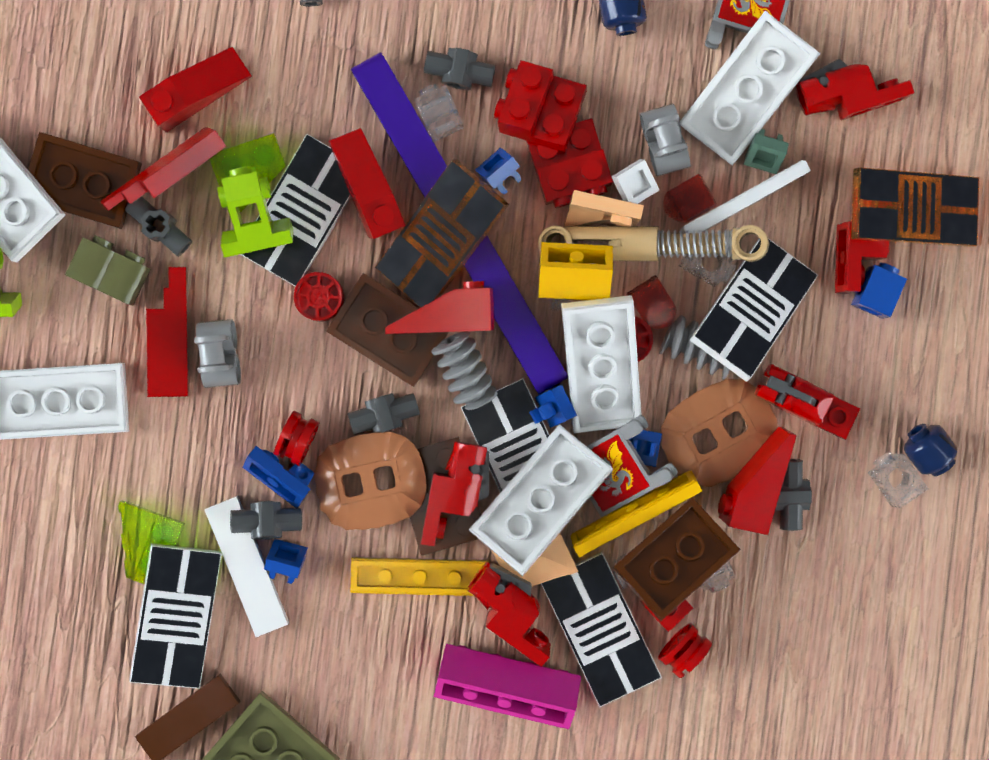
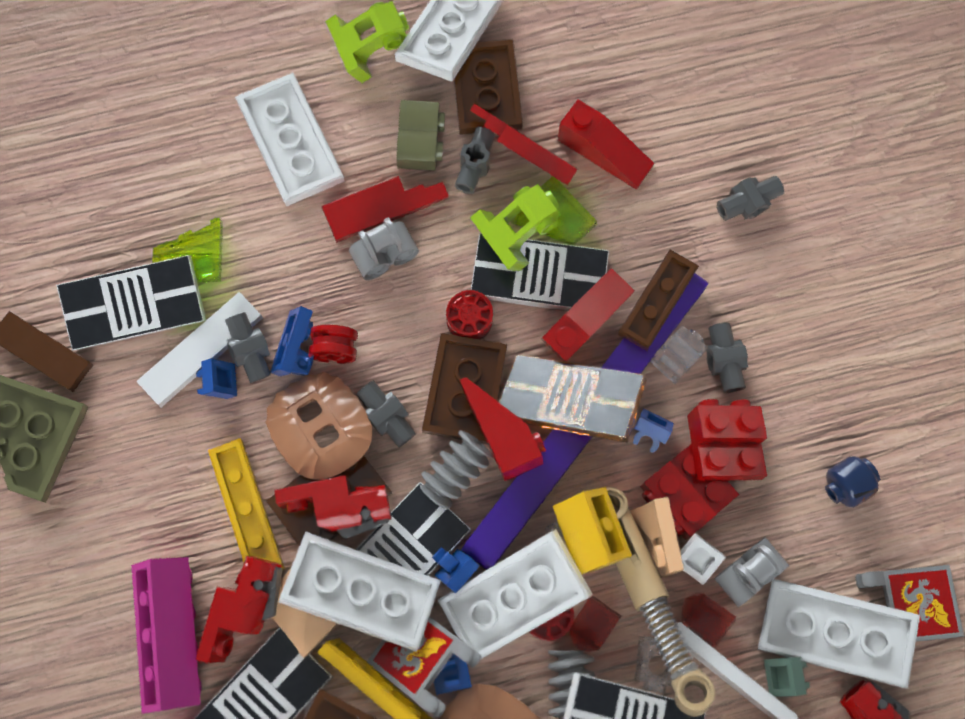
camera: 70 degrees right, 15 degrees down
(380, 110) = (658, 300): none -> reddish brown tile

